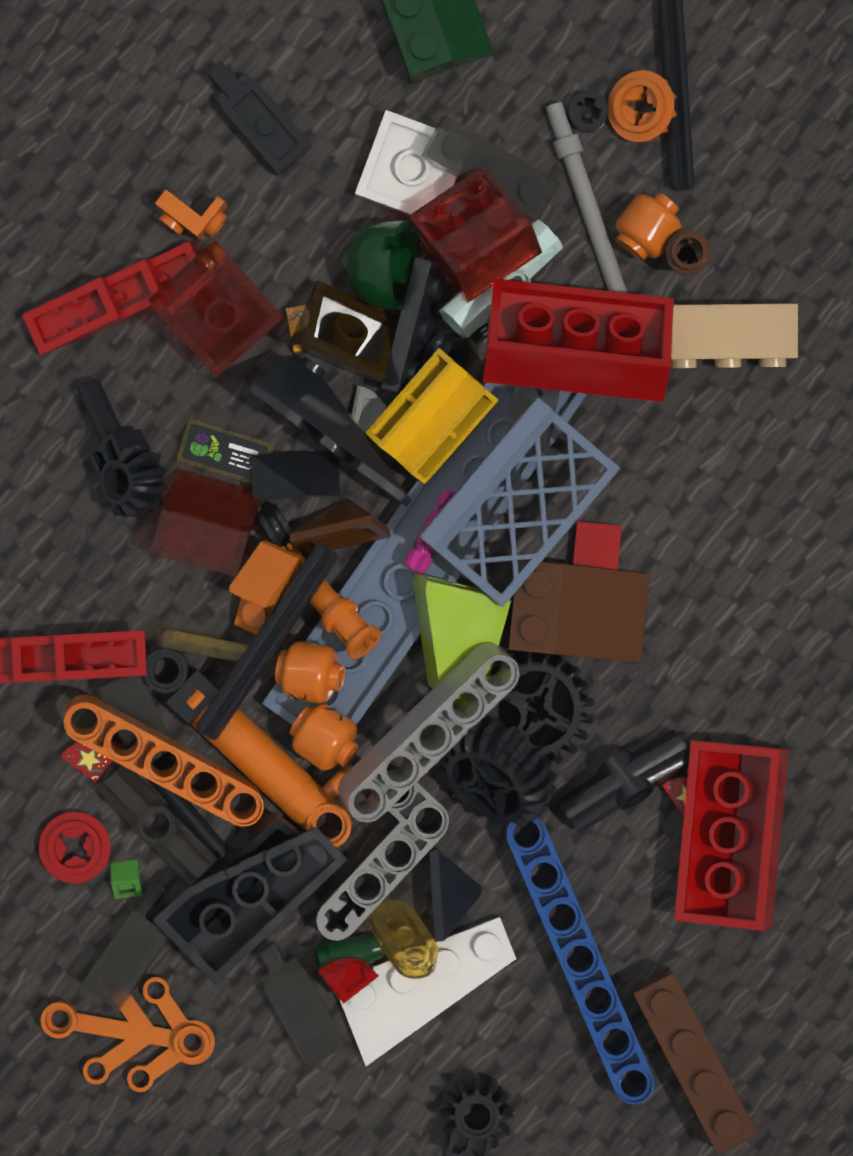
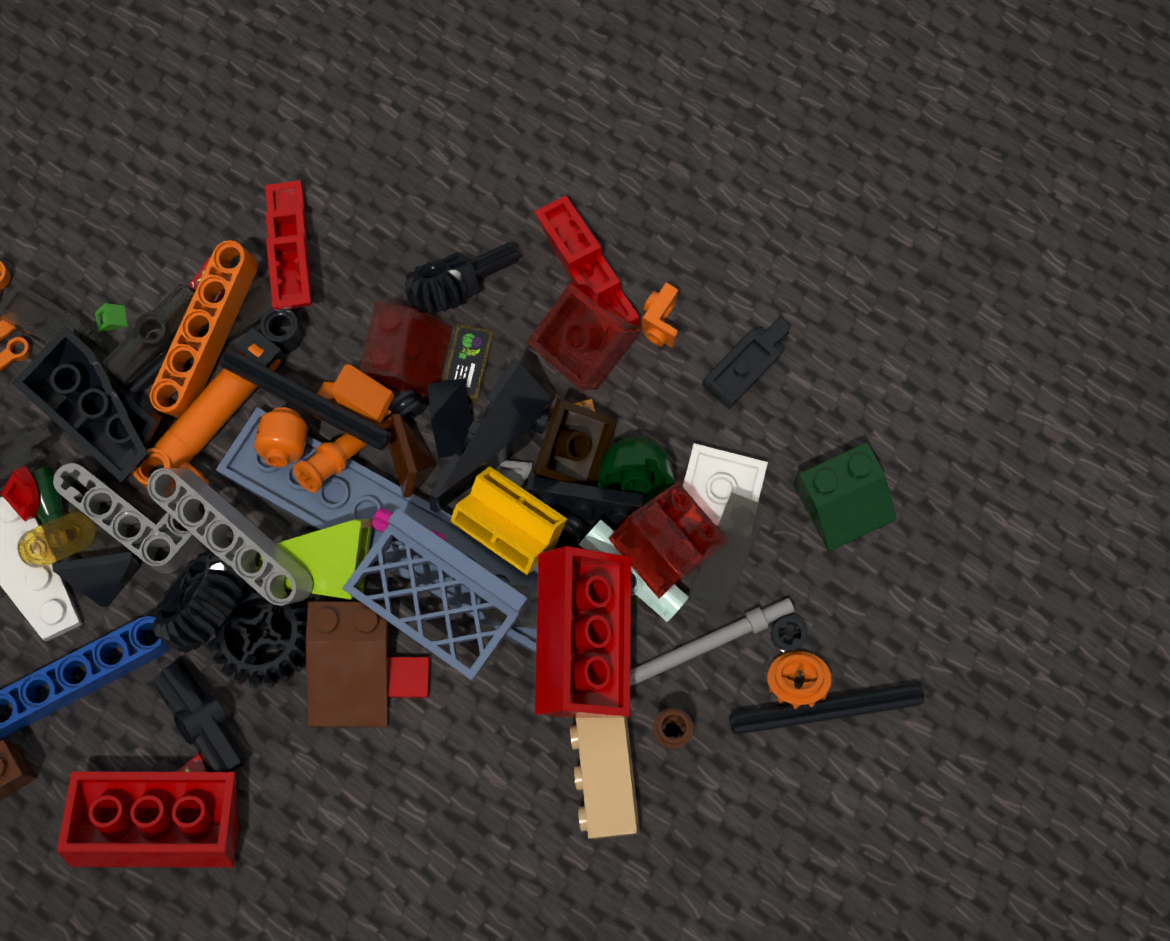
camera: 80 degrees right, 15 degrees down
(53, 848) = (134, 260): red gear -> none
(203, 645) = (304, 353): clear yellow tile -> none
(324, 737) = (226, 454): orange head -> none
(647, 226) = (694, 693): orange head -> none

